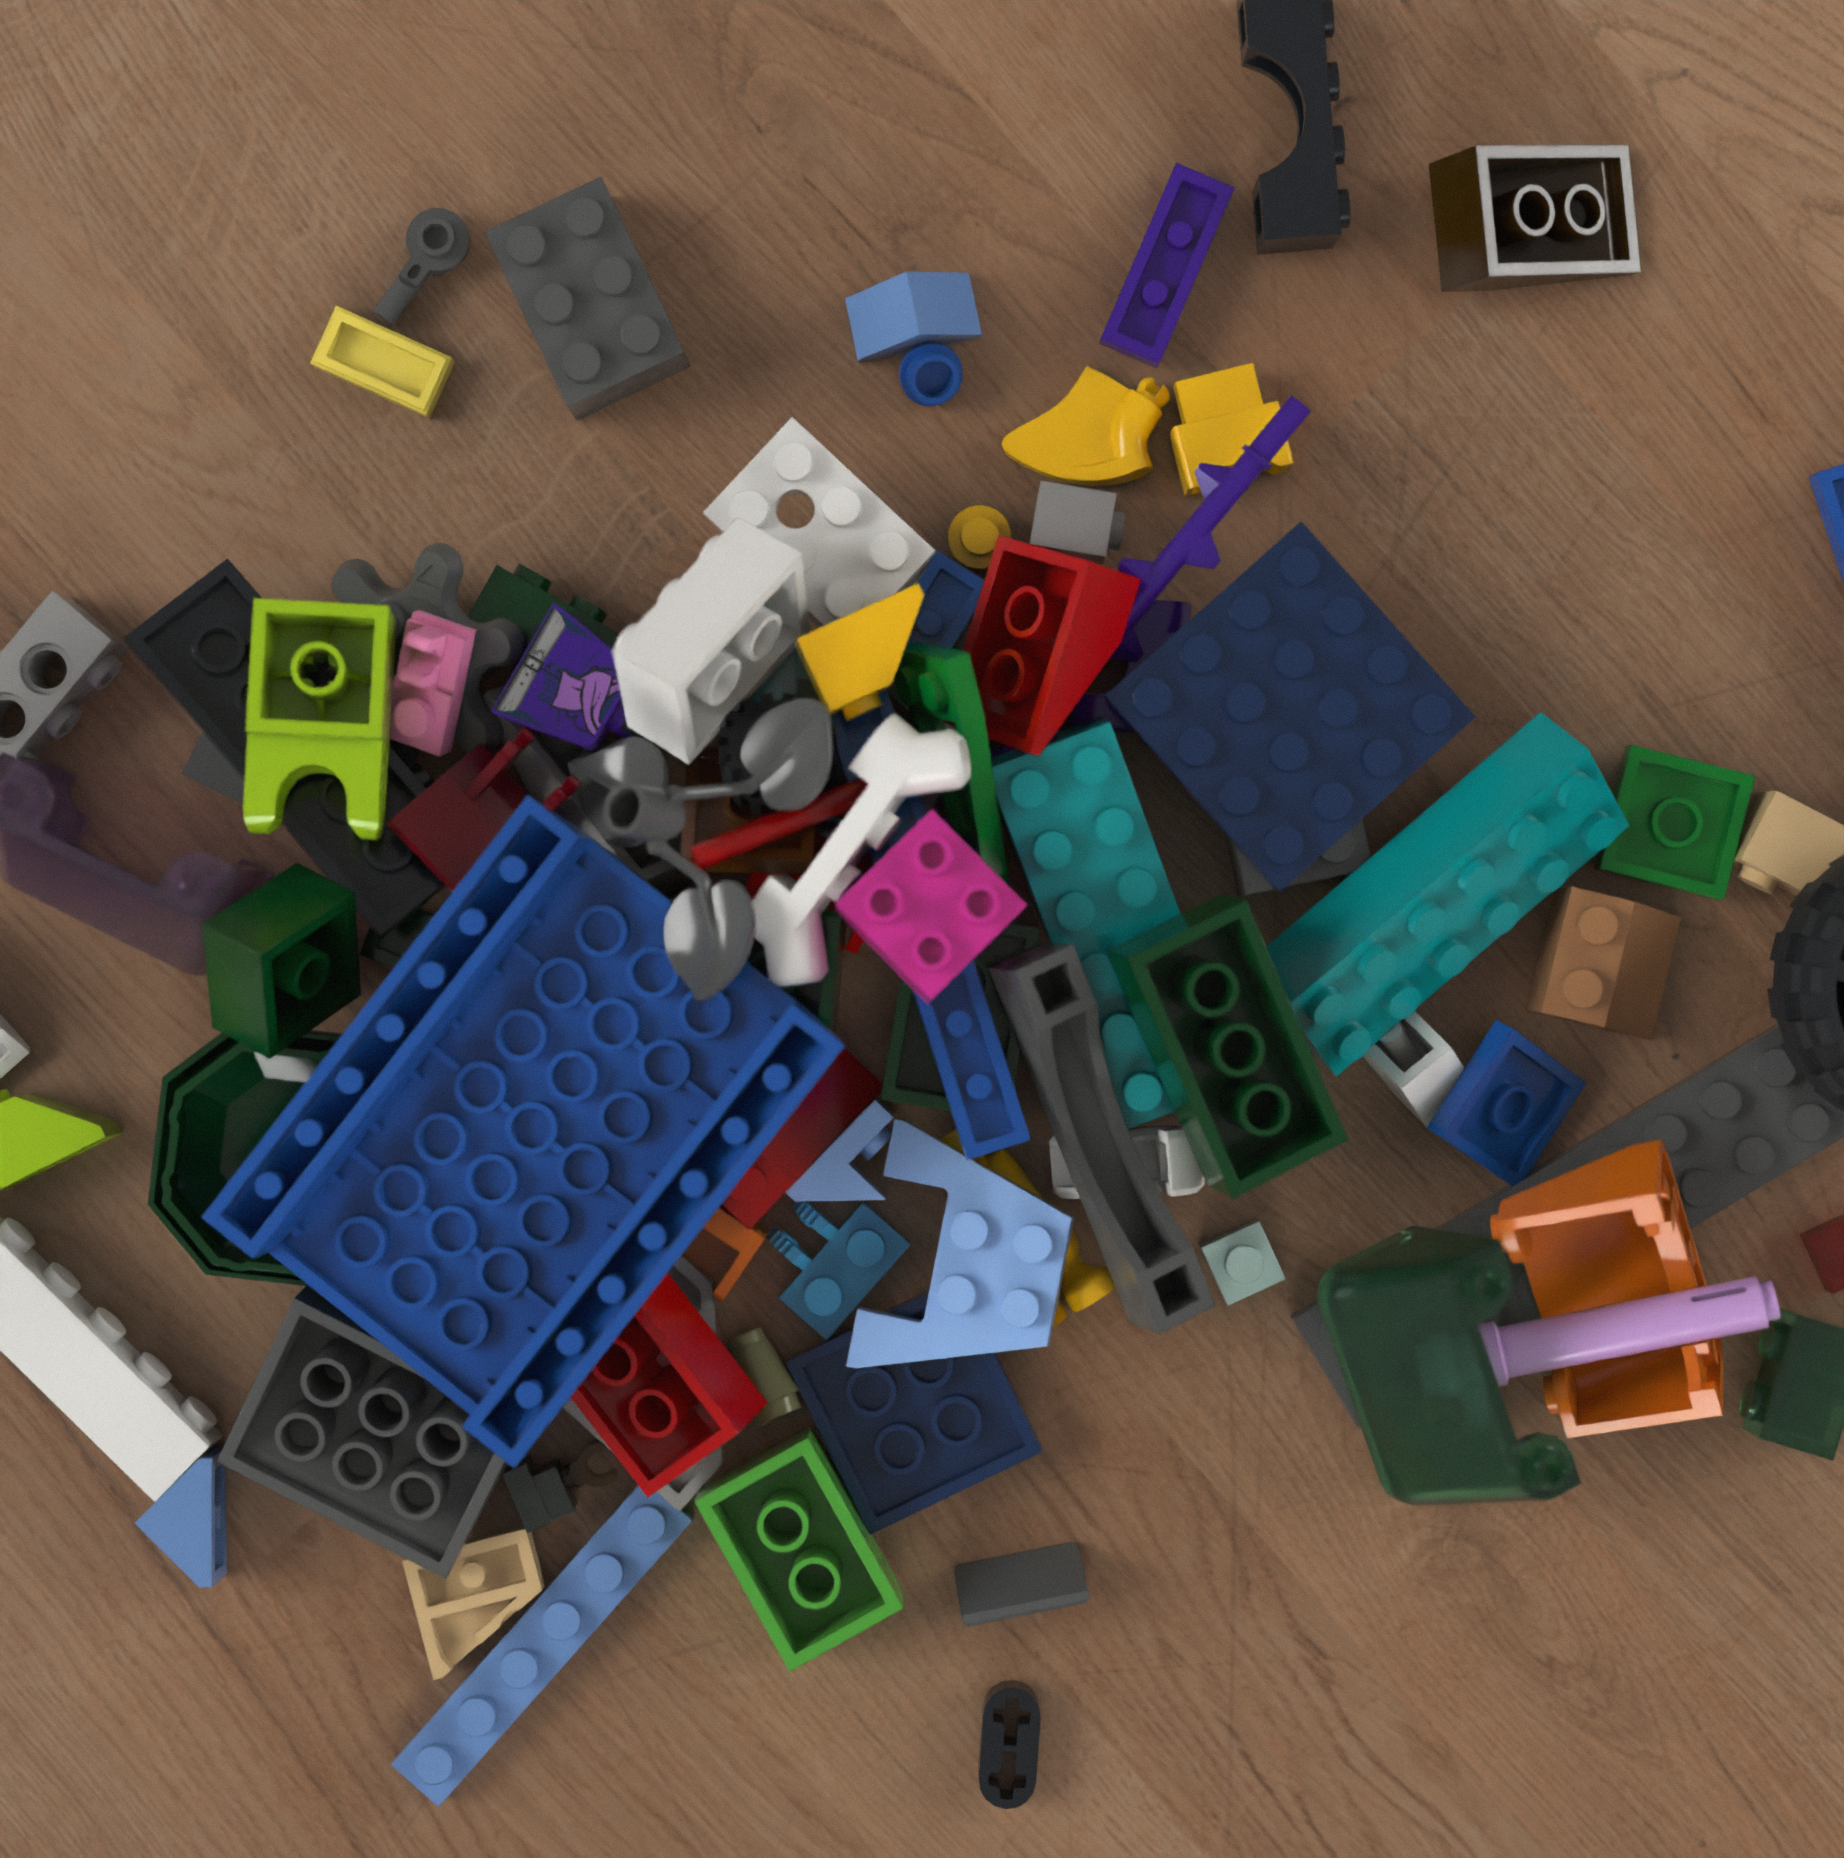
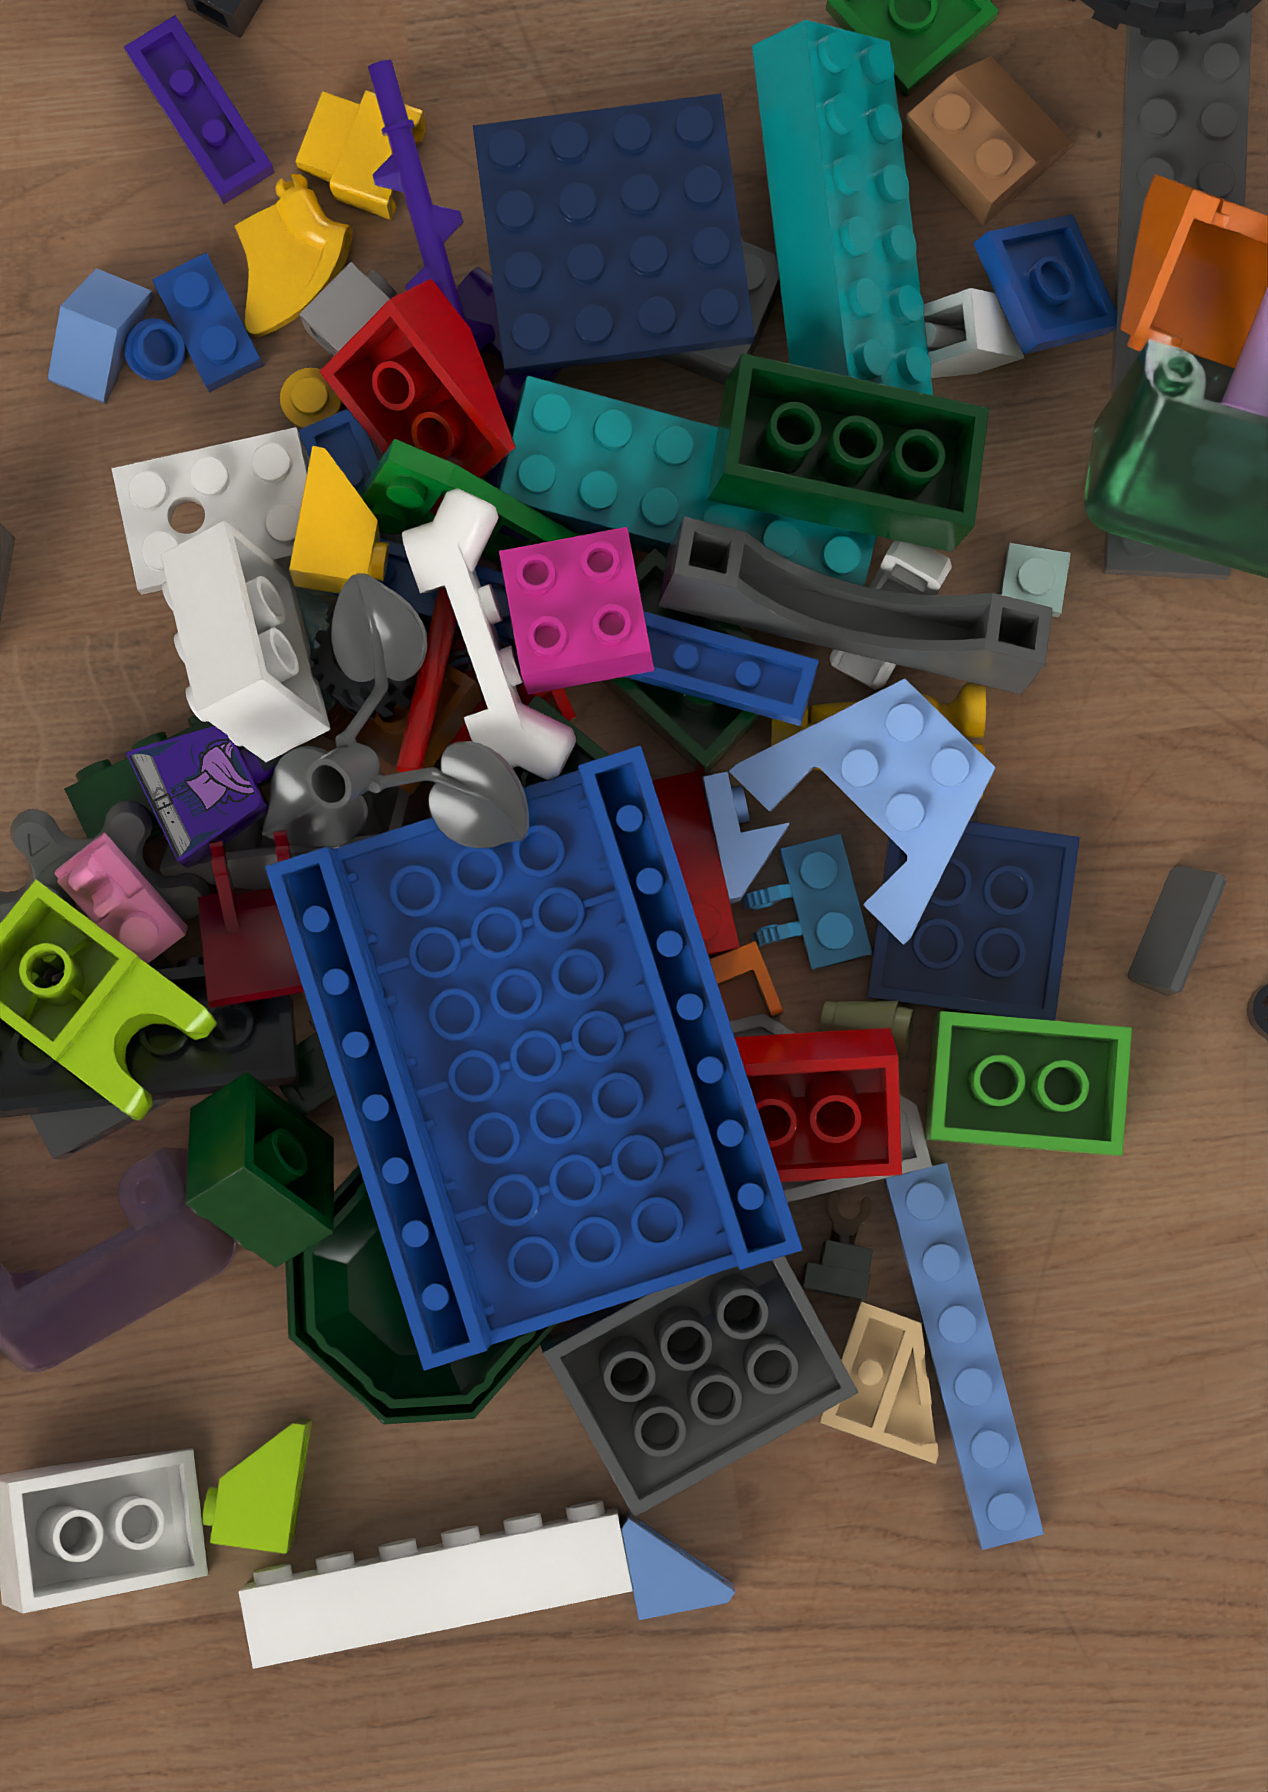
camera: 50 degrees left, 5 degrees down
(986, 401) = (207, 322): none -> blue plate

